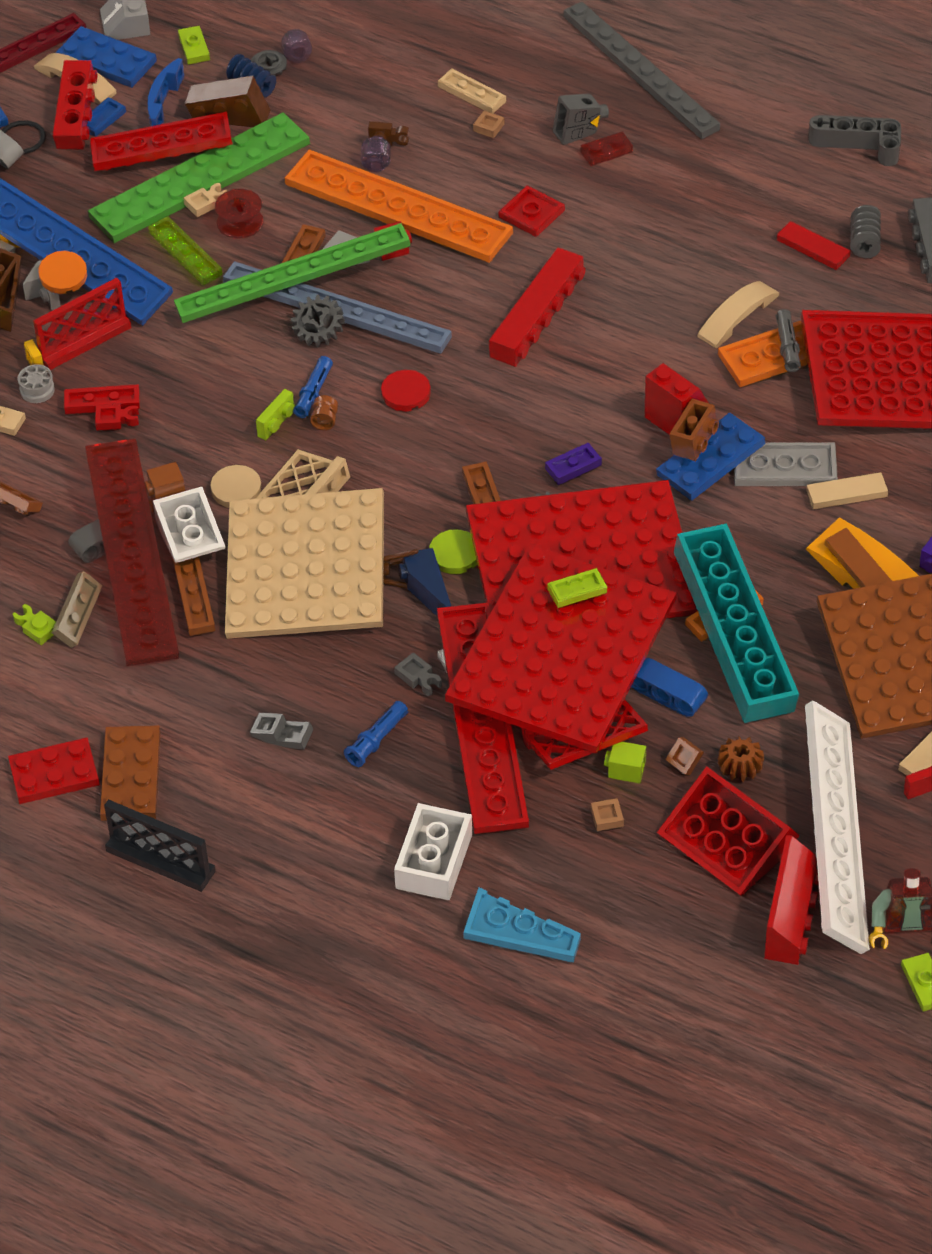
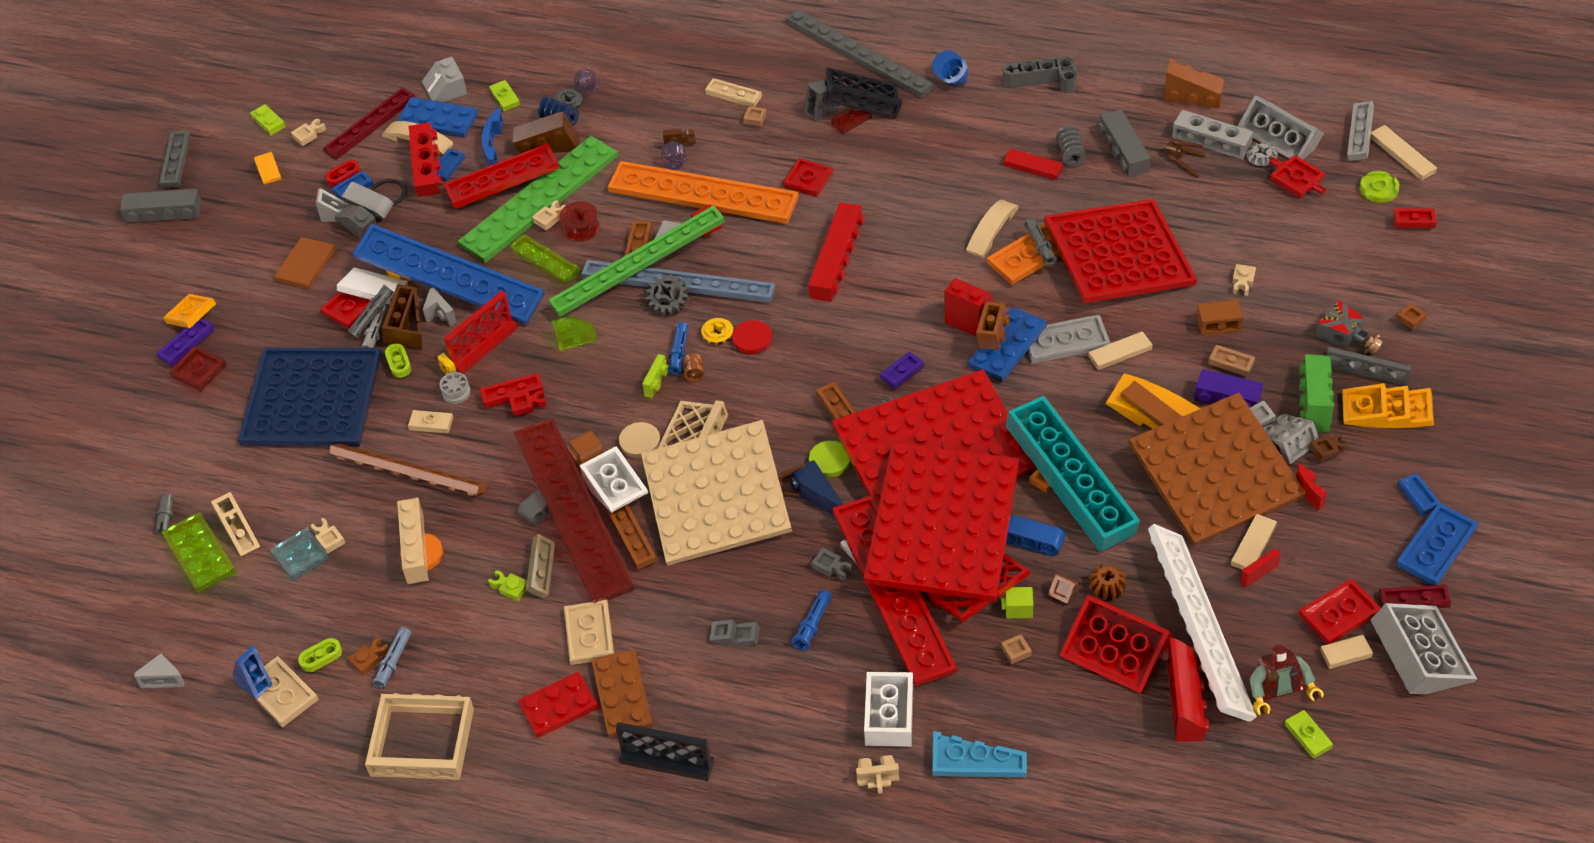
camera: 10 degrees left, 0 degrees up
(62, 272) = (453, 294): orange tile -> none
(112, 695) = (588, 631): none -> tan tile
(193, 344) = (573, 332): none -> clear neon green slope
(372, 368) = (719, 324): none -> yellow gear
(399, 924) = (877, 776): none -> tan hips
(577, 588) = (943, 470): lime plate -> none
(618, 124) = (868, 99): none -> black fence
(746, 108) = (950, 67): none -> blue piece

